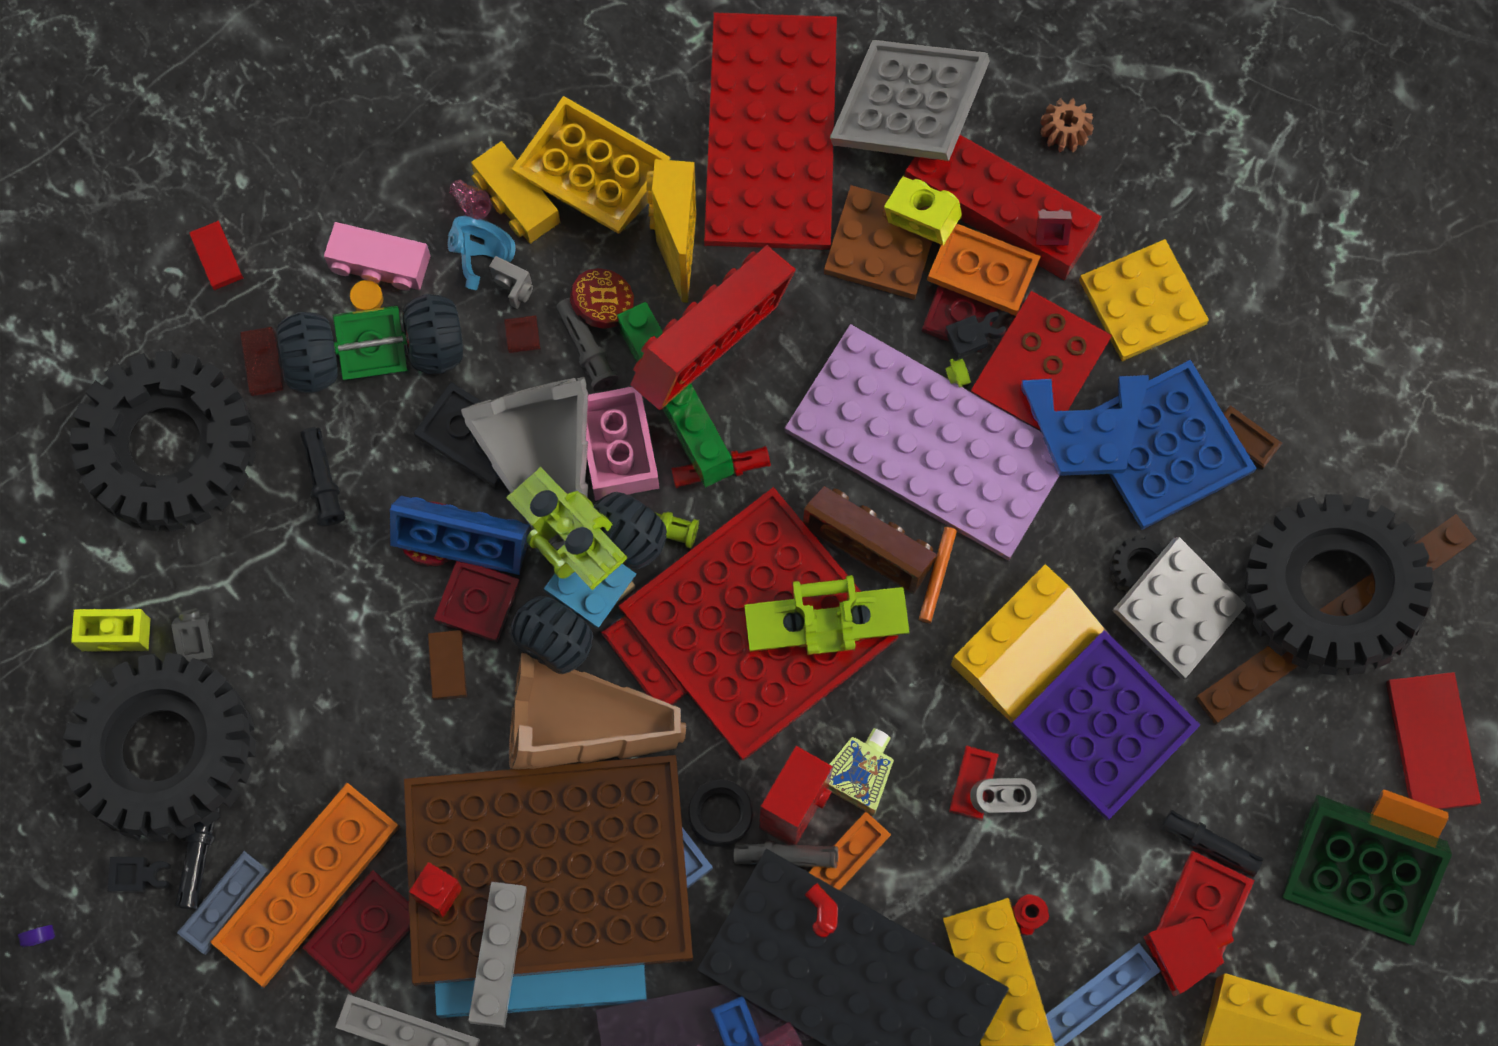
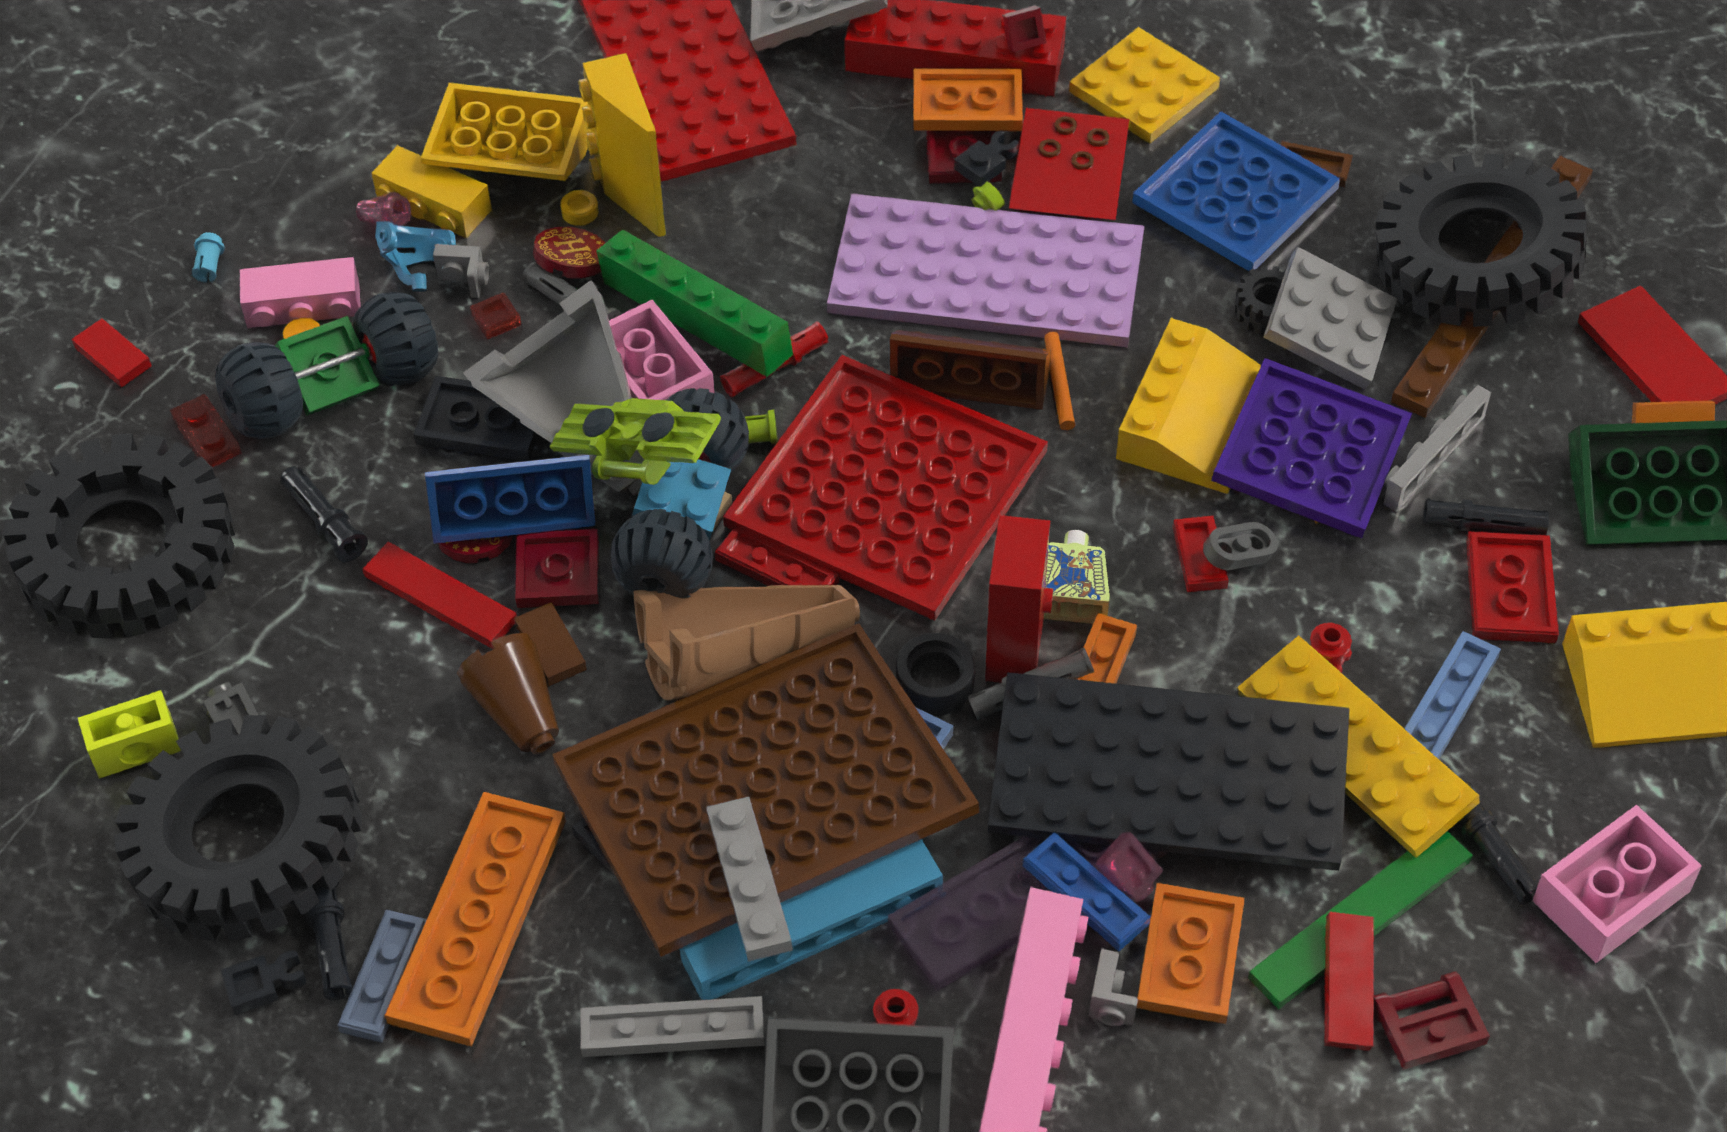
camera: 20 degrees left, 20 degrees down
(36, 936) = (158, 1090): dark purple tile -> none
(319, 189) = (208, 248): none -> medium azure pin
(361, 932) = (568, 945): dark red tile -> none
(382, 587) = (439, 594): none -> red tile
(400, 709) = (513, 691): none -> reddish brown cone
(435, 889) = (644, 834): red brick -> none
(629, 249) = (579, 207): none -> yellow tile
(711, 326) = (707, 215): red brick -> none
(826, 911) = (1107, 697): red arm -> none
(830, 629) = (964, 455): lime piece -> none
(875, 251) = (849, 119): dark orange plate -> none
(933, 223) = (880, 64): neon yellow brick -> none
(1088, 439) = (1151, 206): blue wing -> none
(1187, 952) = (1518, 616): red torso -> none
(1216, 756) = (1442, 441): none -> light grey plate

